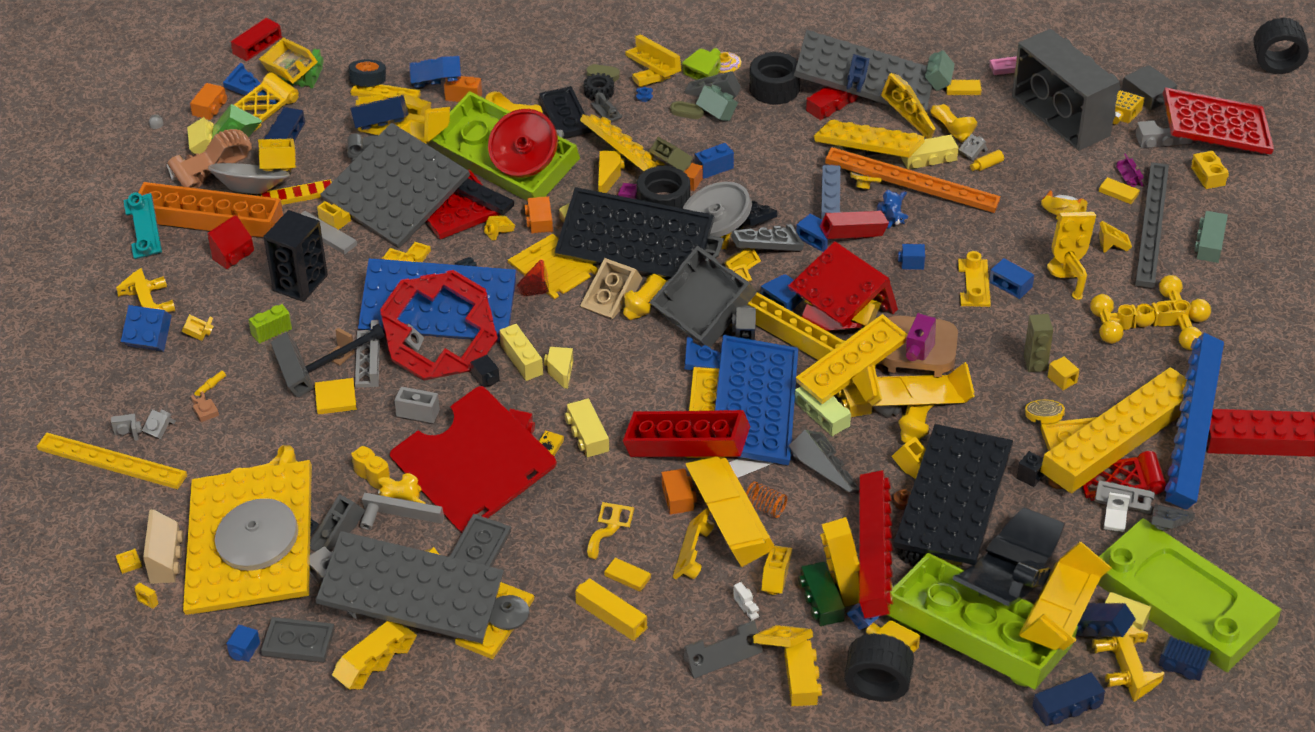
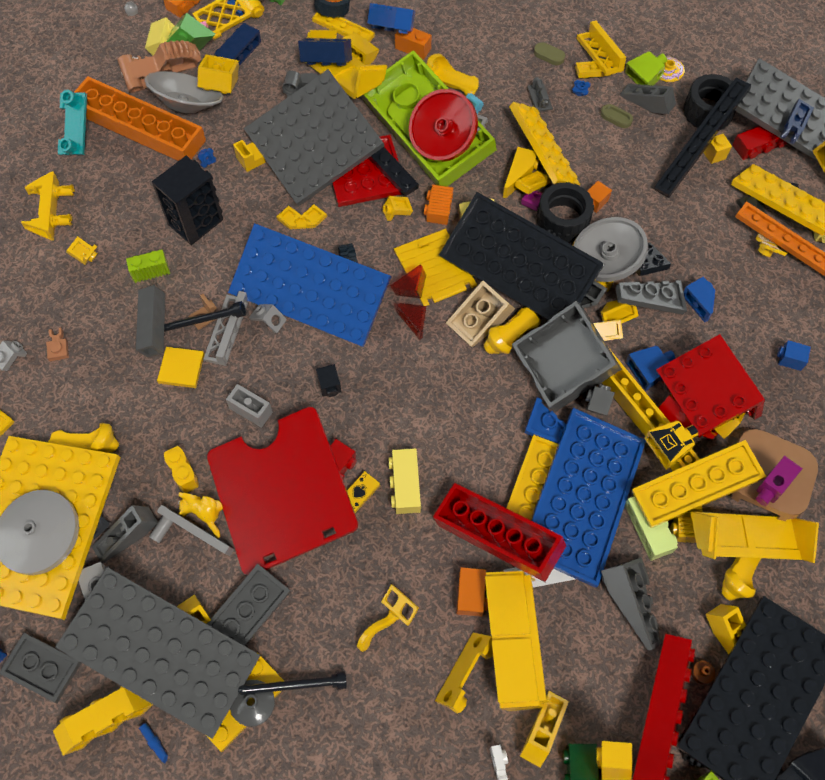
camera: 15 degrees right, 20 degrees up
(146, 328) = (31, 243): blue brick -> none
(210, 383) = (73, 318): yellow piece -> none
(230, 242) = (142, 162): red slope -> none
(299, 193) = (224, 119): yellow tile -> none
(334, 237) = (236, 171): light grey tile -> none
(426, 666) = (153, 742): none -> blue piece
(430, 287) = (256, 316): red plate -> none
(521, 352) = (370, 367): light yellow brick -> none
(547, 306) = (414, 317): none -> clear red slope
(560, 364) = (403, 392): light yellow slope -> none
(564, 111) = (499, 89): black plate -> none
(574, 582) = (336, 680): none -> black piece
(598, 83) = (540, 62): black tyre -> none
(611, 609) = (357, 730): yellow brick -> none
(624, 177) = (532, 182): none -> yellow tile
(627, 574) = (390, 684): yellow tile -> none
(671, 154) = (584, 170): olive brick -> none
(715, 160) = (626, 184): blue brick -> none
(716, 102) = (647, 117): sand green brick -> none
(773, 105) = (702, 137): none -> black plate
(775, 504) = (550, 615): orange piece -> none
(792, 114) = (718, 149): none -> yellow brick
(818, 334) = (671, 442): none -> torso
(830, 190) = (729, 258): sand blue brick -> none
(854, 224) = (744, 302): red brick -> none
(892, 207) = (788, 287): blue animal -> none

